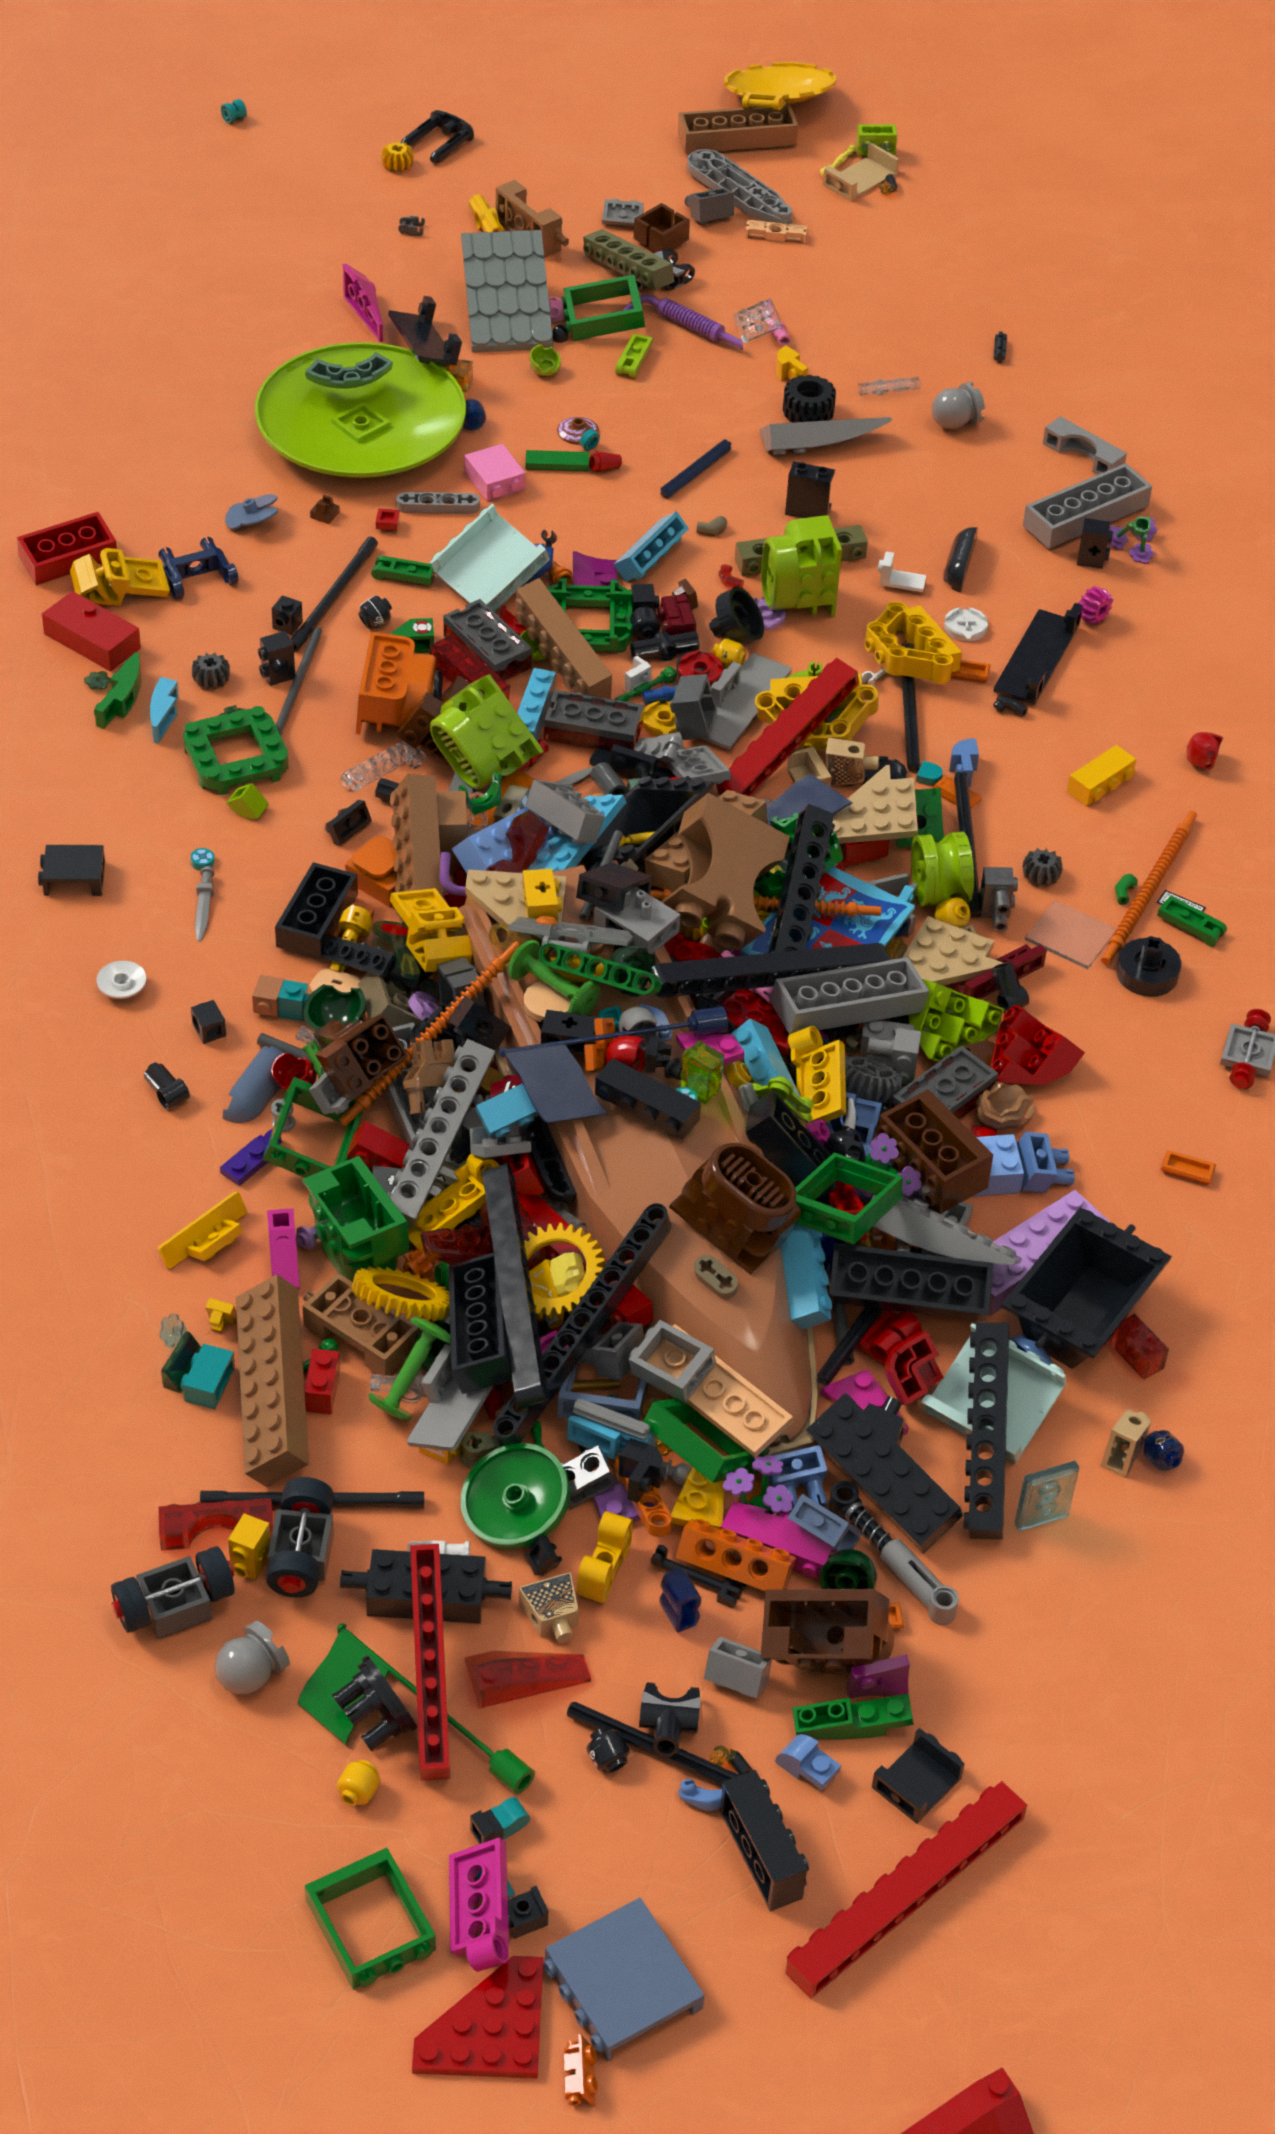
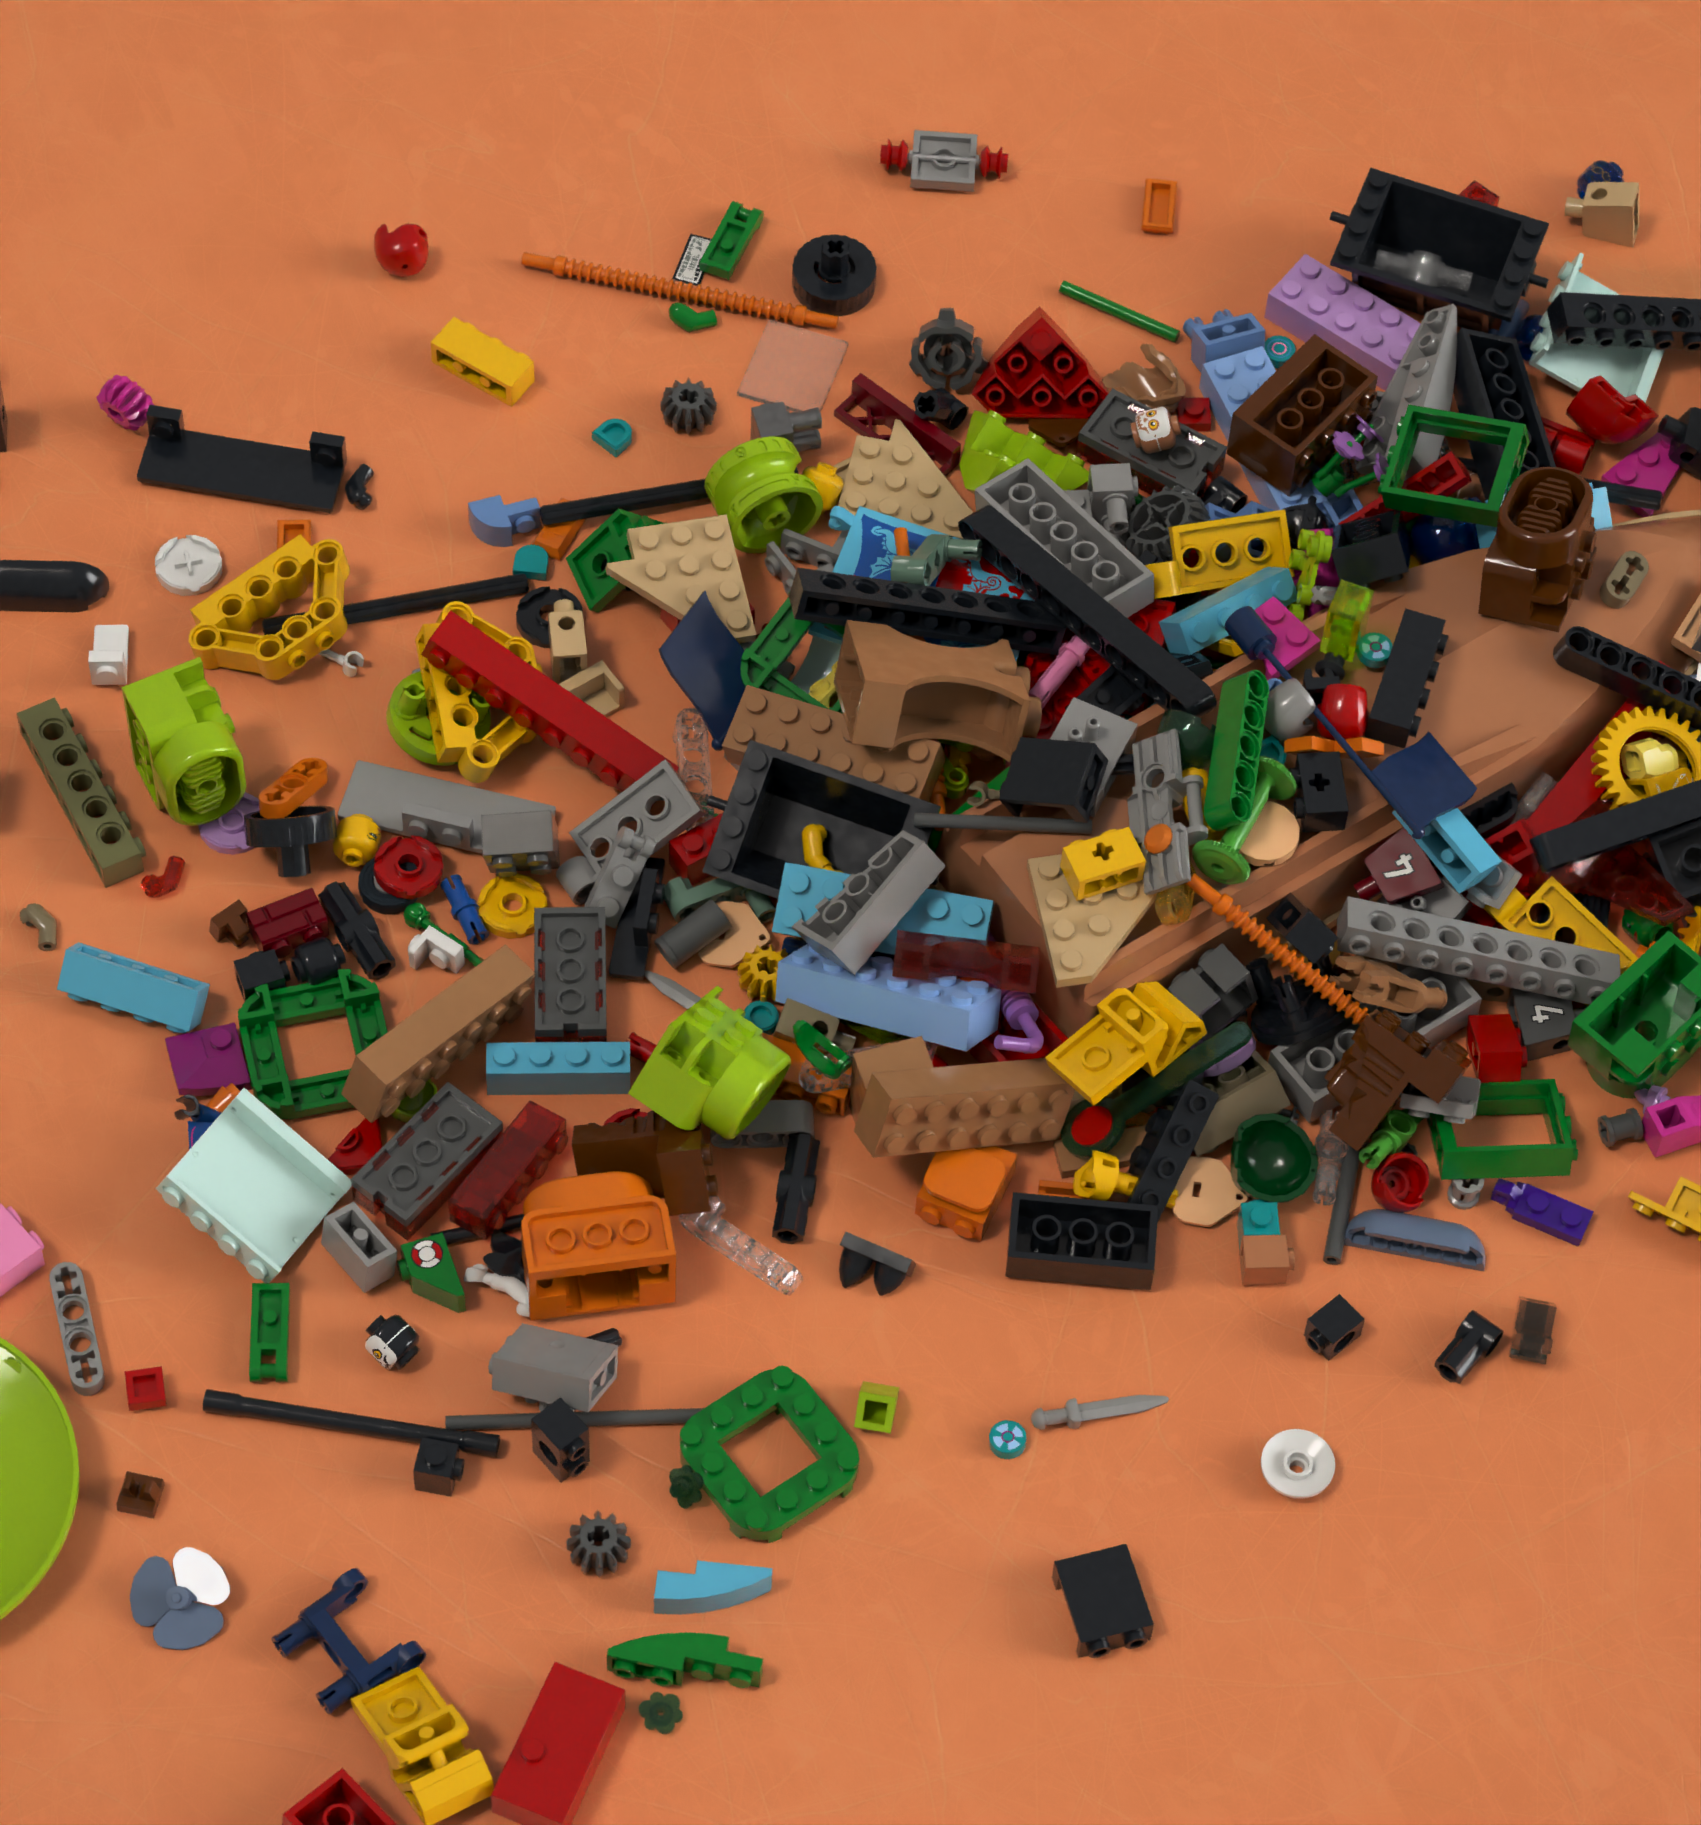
camera: 105 degrees left, 10 degrees up
(157, 1118) = (1532, 1330): none -> clear smoke brick
(299, 1205) = (1620, 1127): none -> dark grey bush
(324, 663) = (555, 1365): none -> light grey piece
(439, 602) = (359, 1247): none -> light grey brick
(759, 615) = (293, 788): none -> orange beam
(837, 902) = (932, 558): none -> sand green beam
(945, 1075) = (1155, 430): none -> head
(1028, 832) = (613, 436): none -> teal tile
(1031, 1203) = (1279, 349): none -> teal tile
(1058, 1000) = (947, 350): none -> dark grey piece
(1085, 1293) = (1423, 268): none -> clear pin
(1093, 1117) = (1119, 311): none -> green bar

